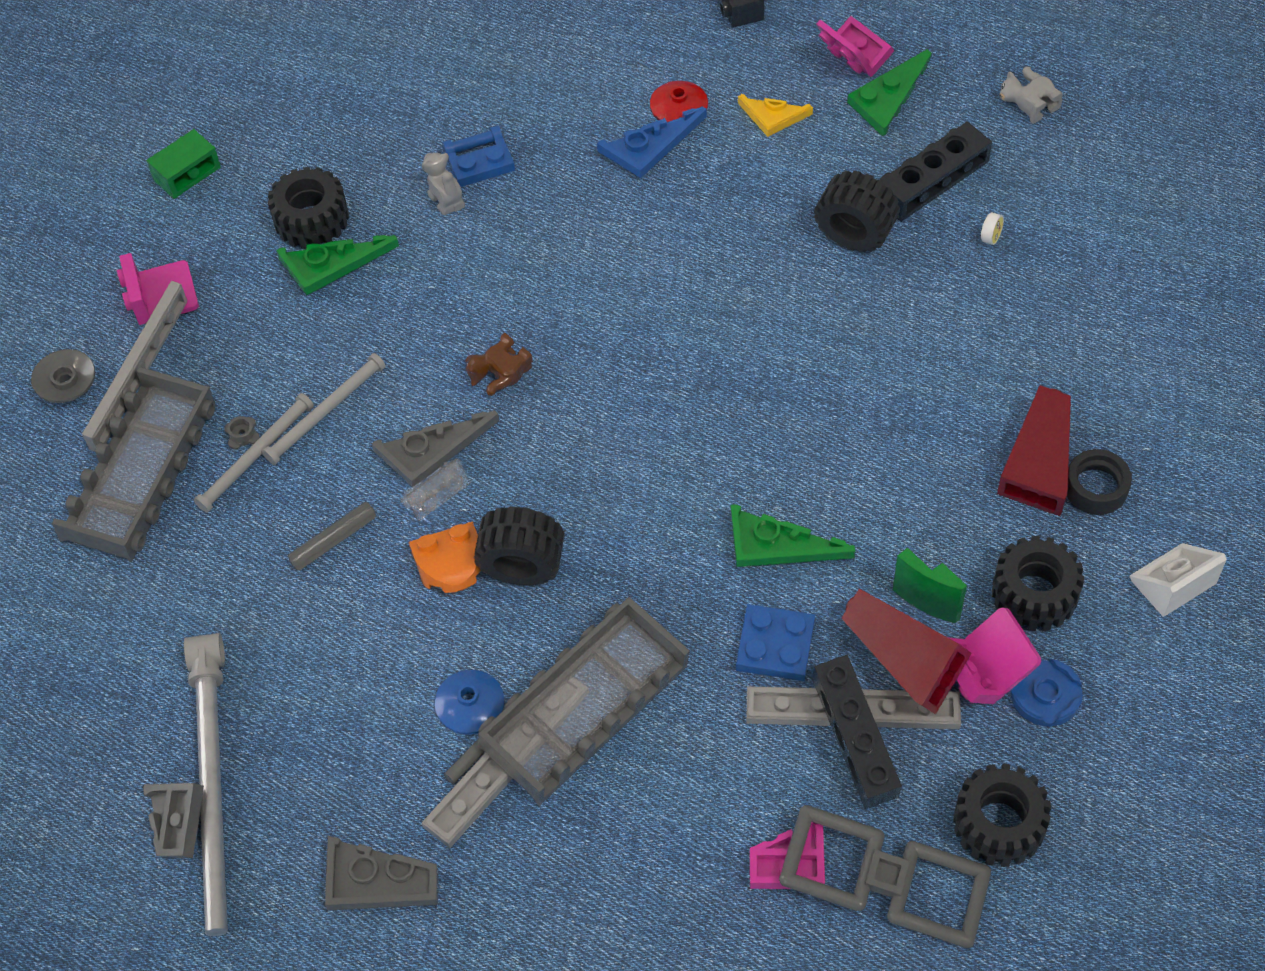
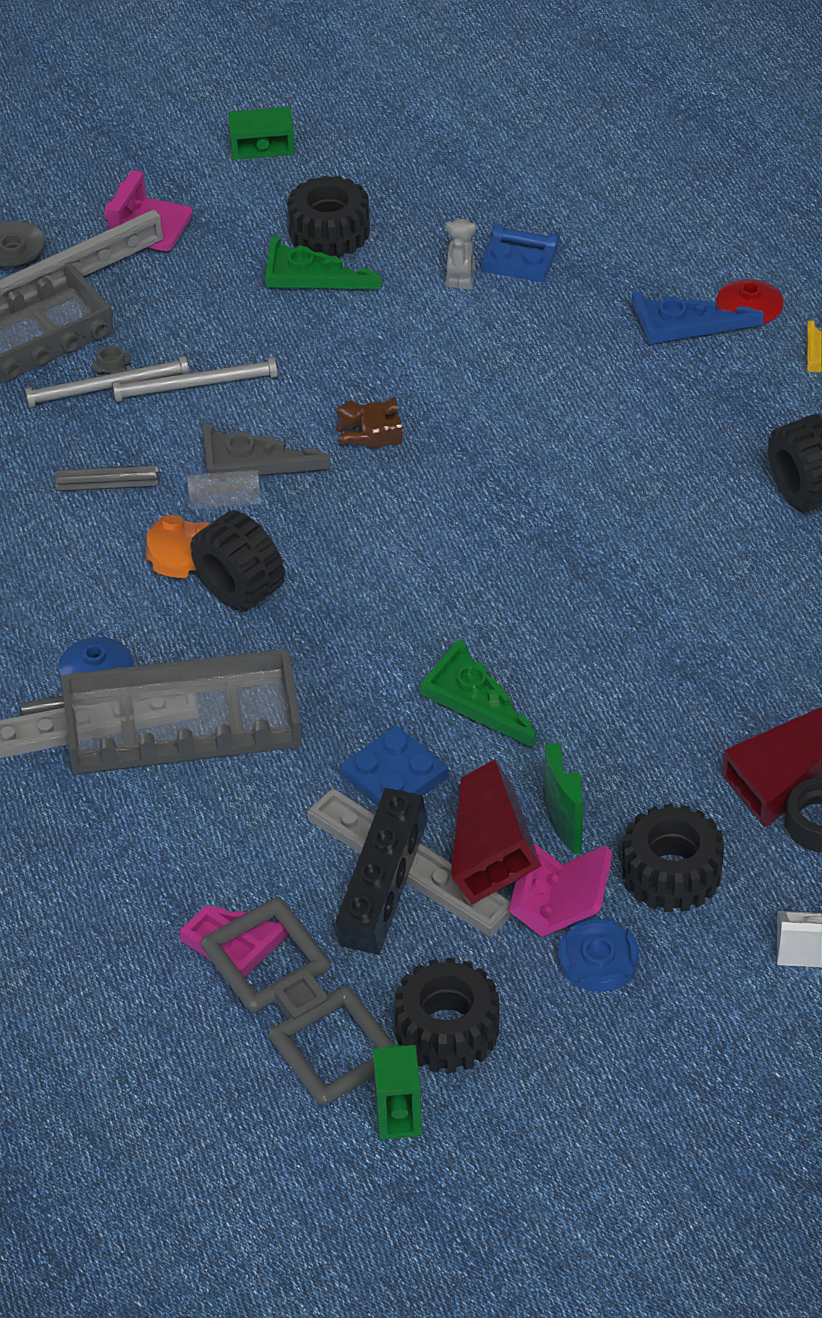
camera: 35 degrees right, 10 degrees down
(1031, 901) = (397, 1092): none -> green brick

